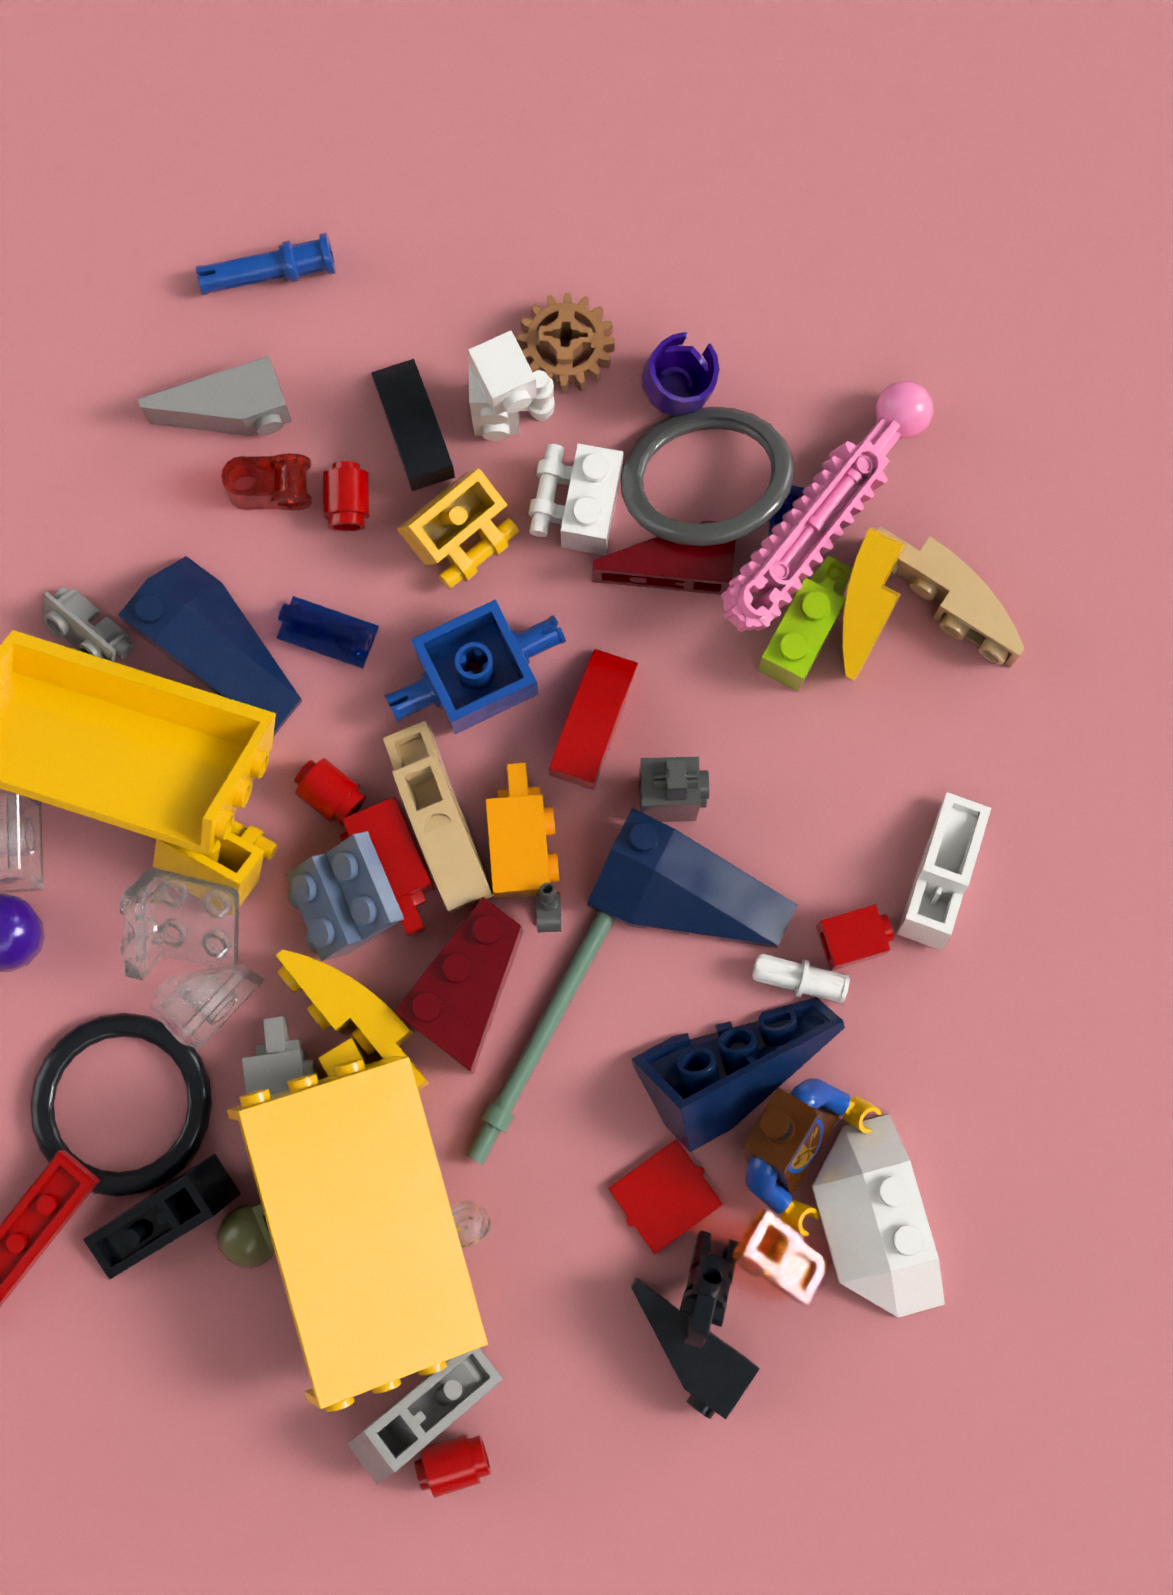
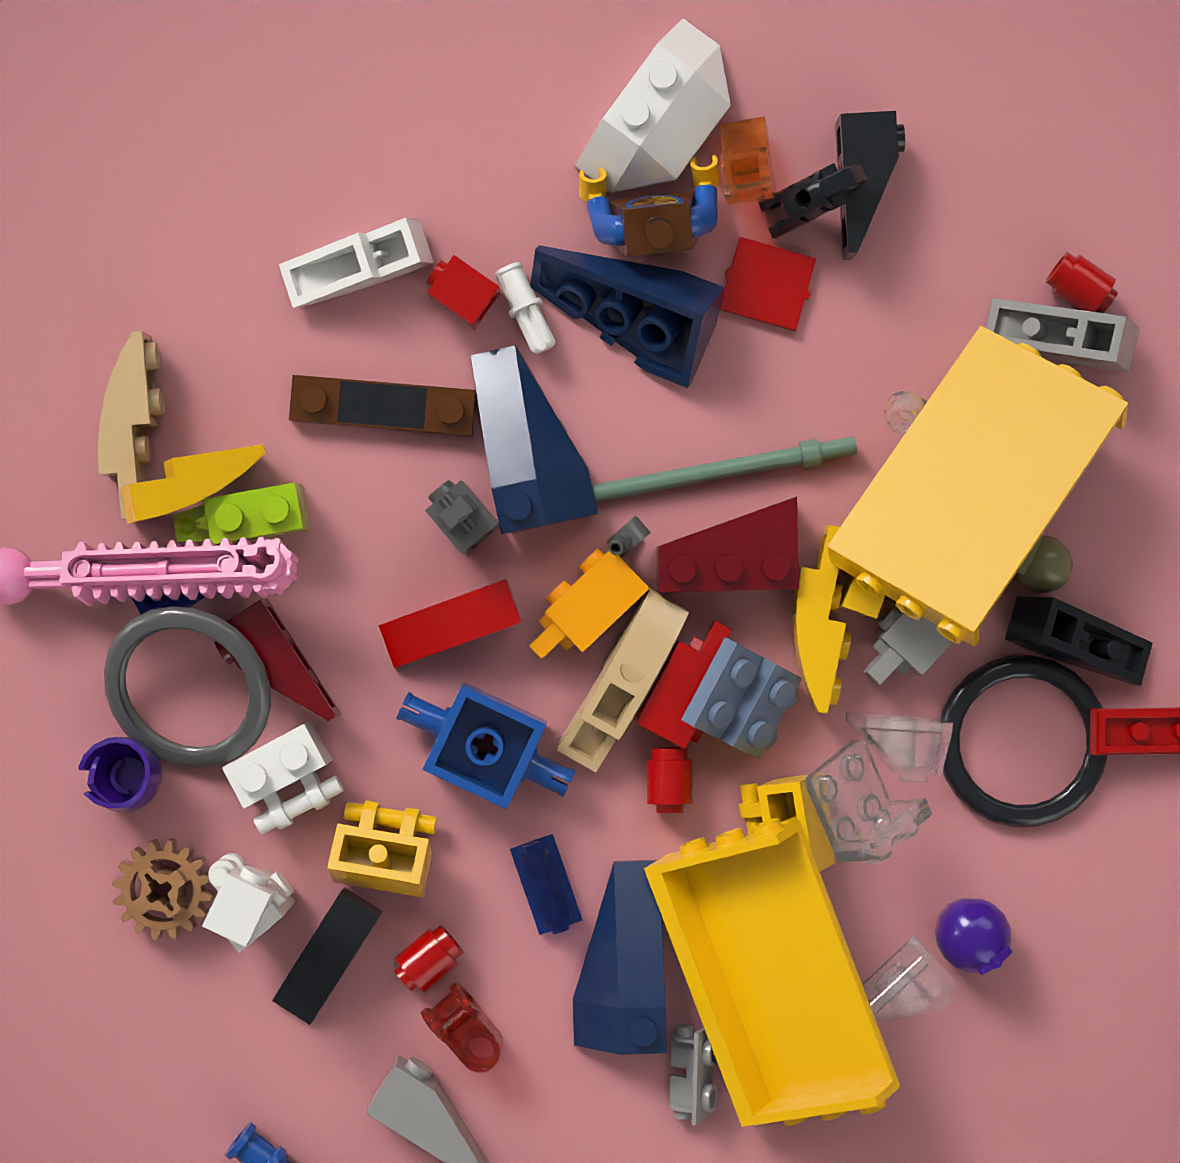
camera: 130 degrees left, 10 degrees up
(811, 802) = (382, 405): none -> plate

